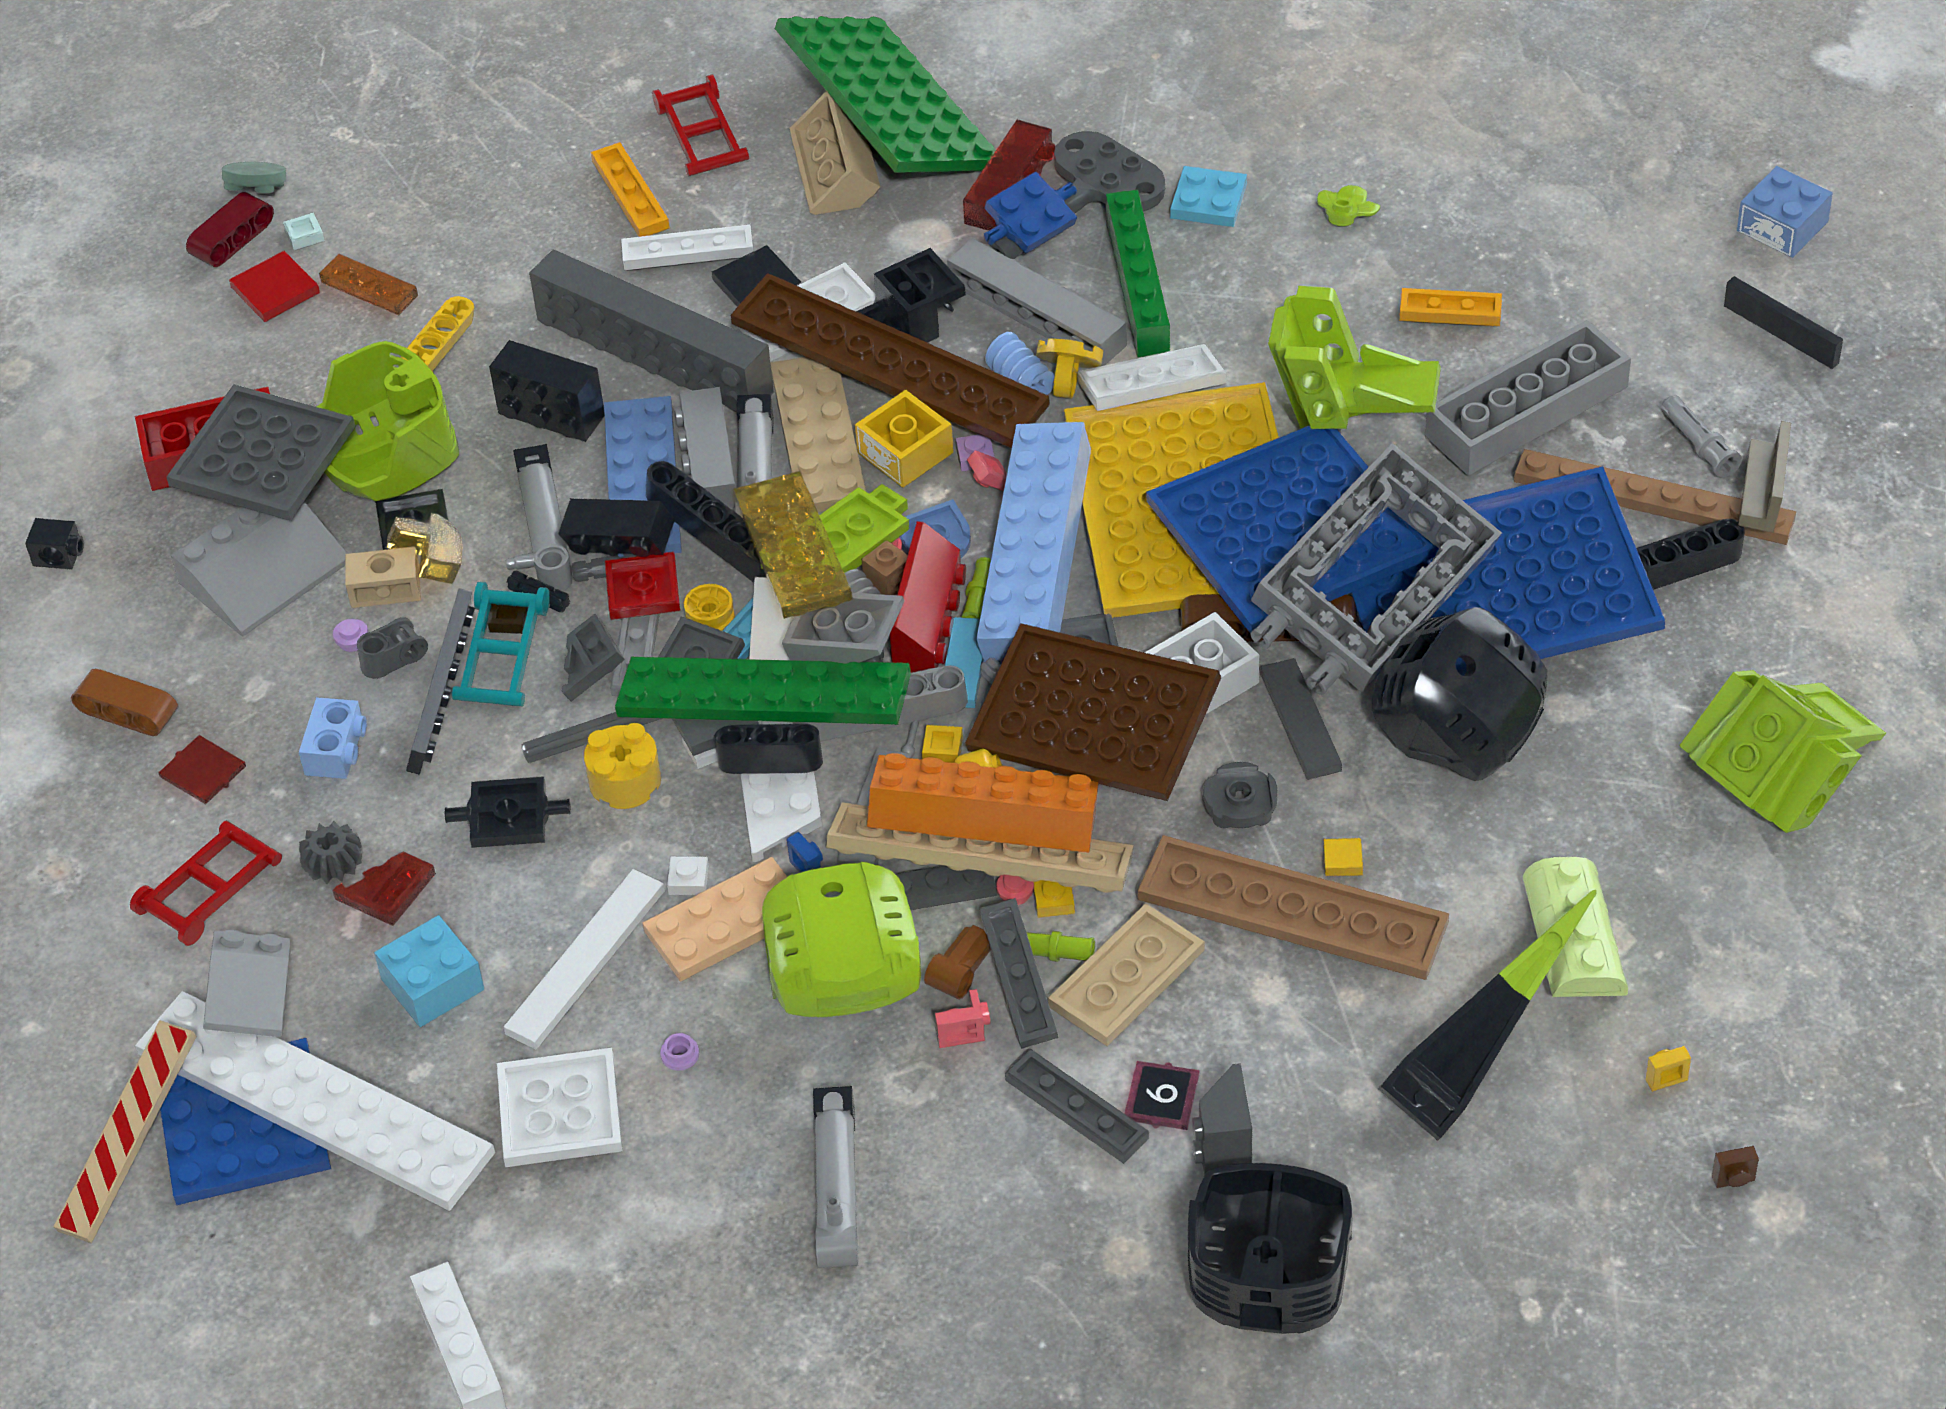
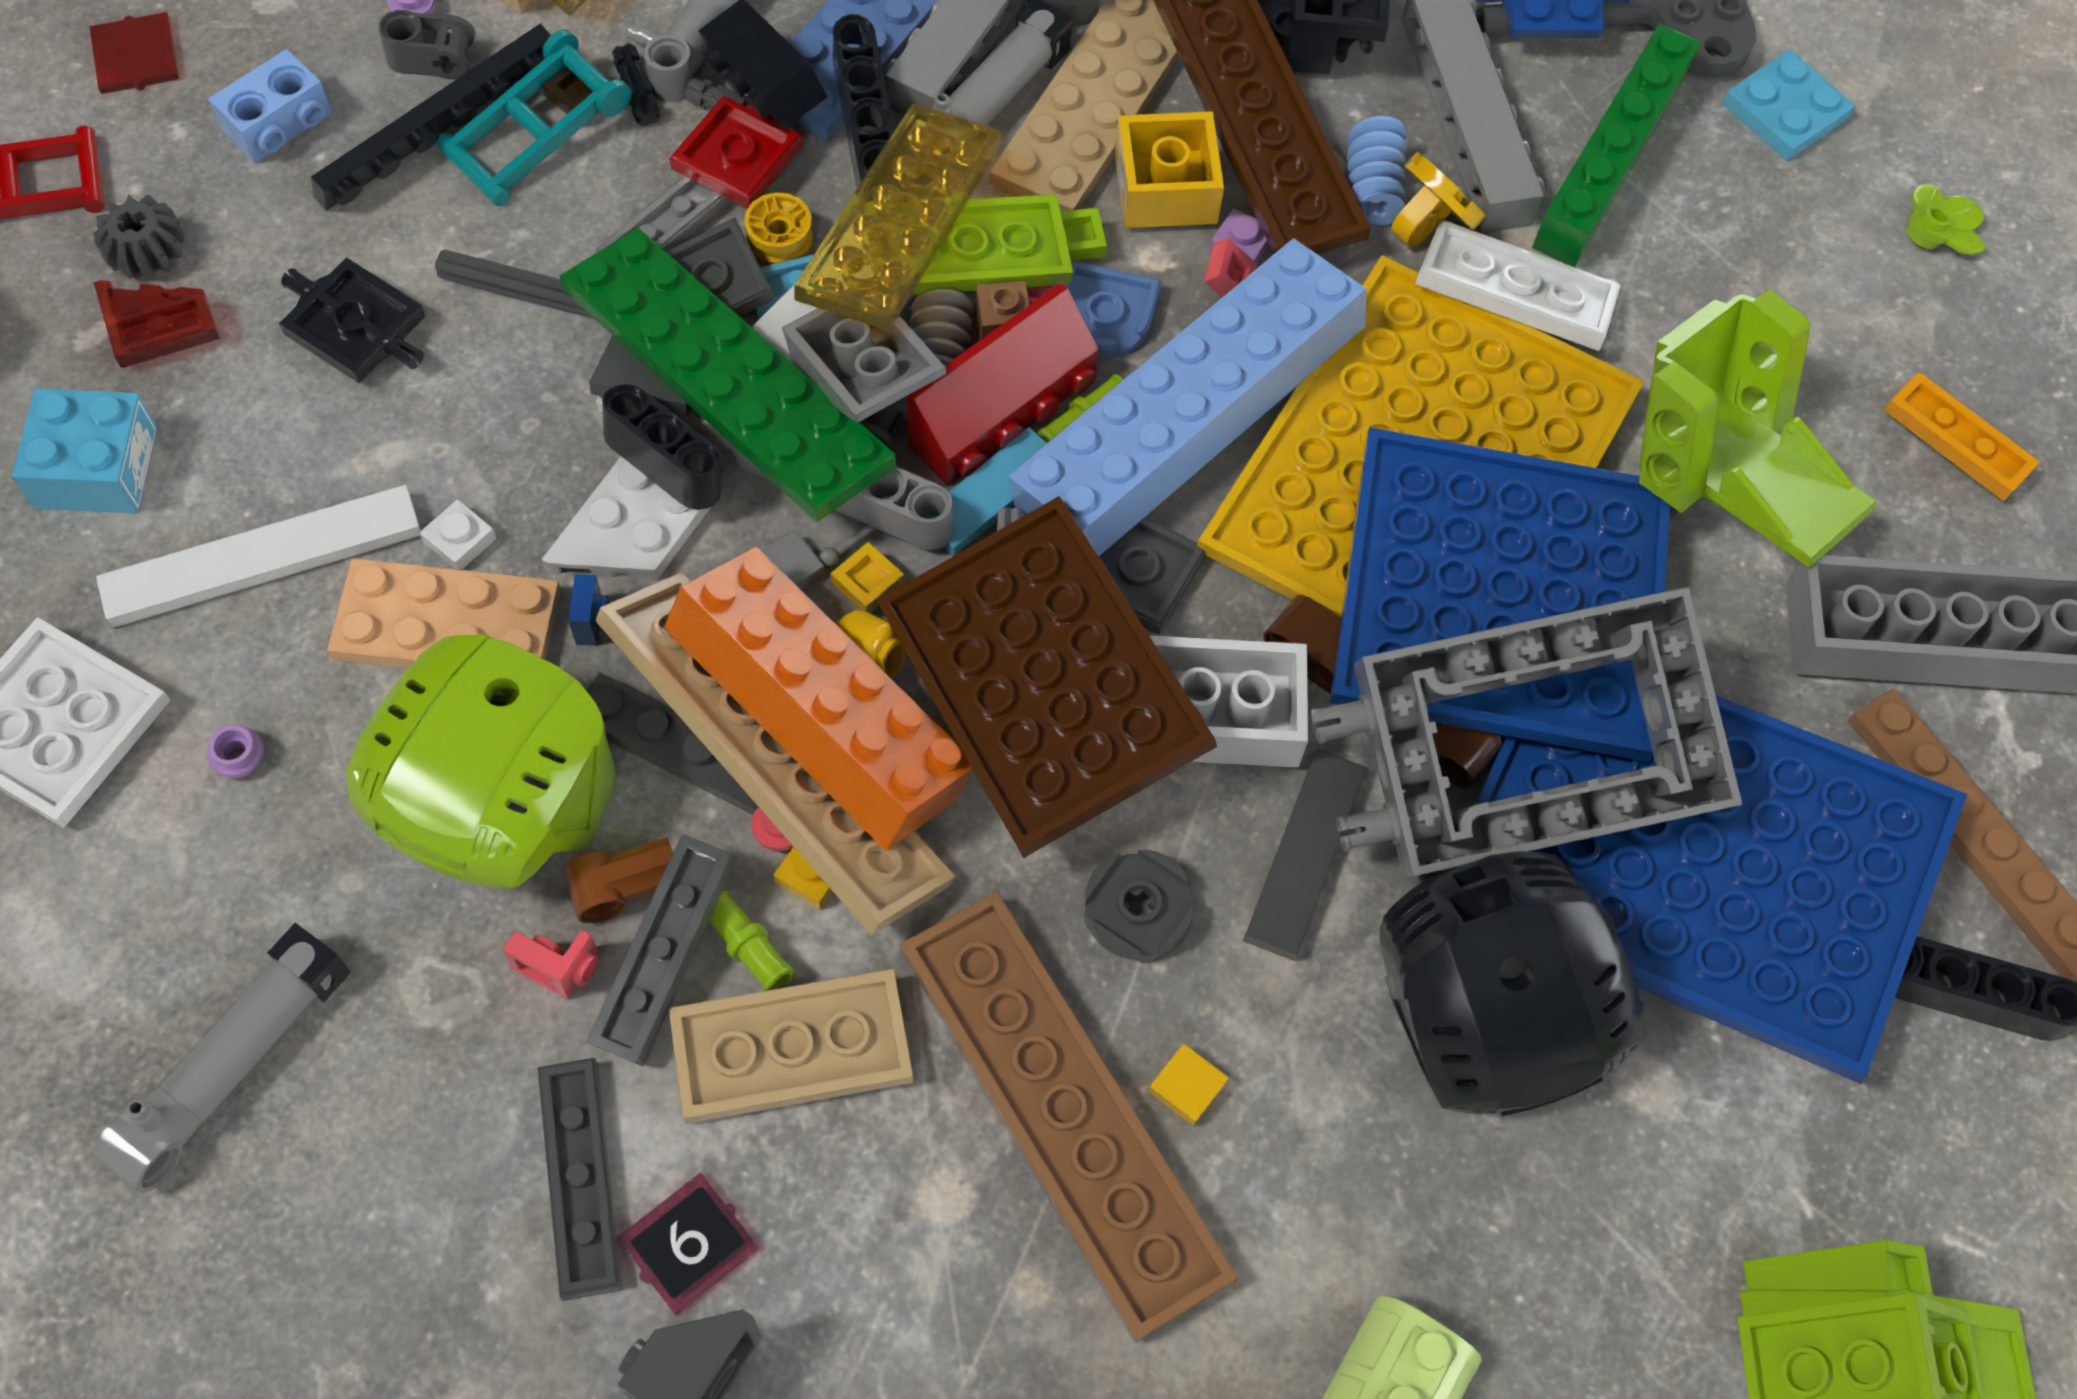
camera: 30 degrees right, 15 degrees up
(589, 656) = (607, 197): dark grey wing -> none
(622, 765) = (507, 351): yellow brick -> none

